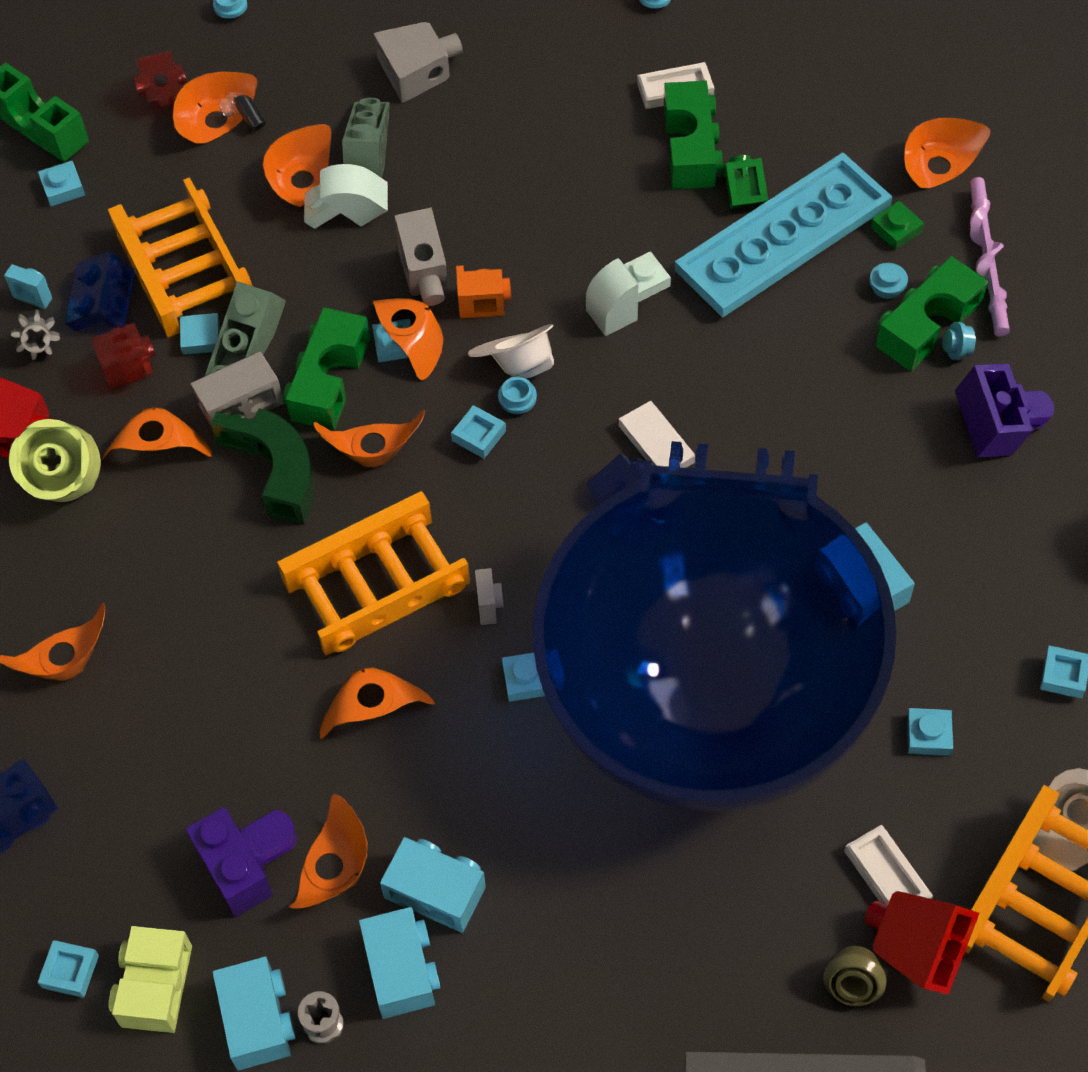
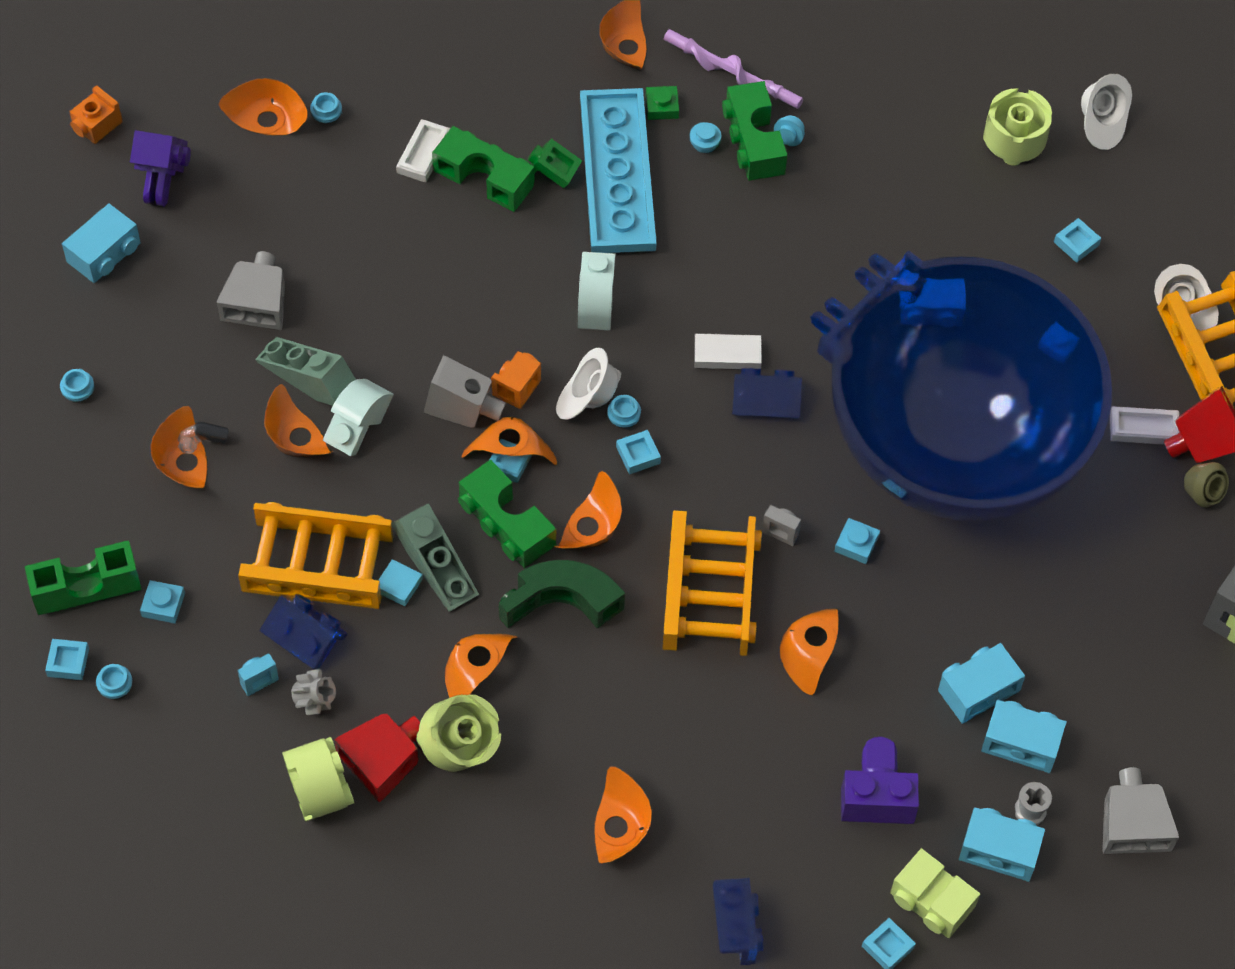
camera: 60 degrees left, 0 degrees up
(124, 355) = (387, 640): clear red brick -> none
(155, 64) = (124, 471): clear red brick -> none
(239, 389) = (481, 583): light grey hinge -> none
(340, 836) = (912, 715): orange piece -> none
(999, 410) = (866, 144): dark purple brick -> none

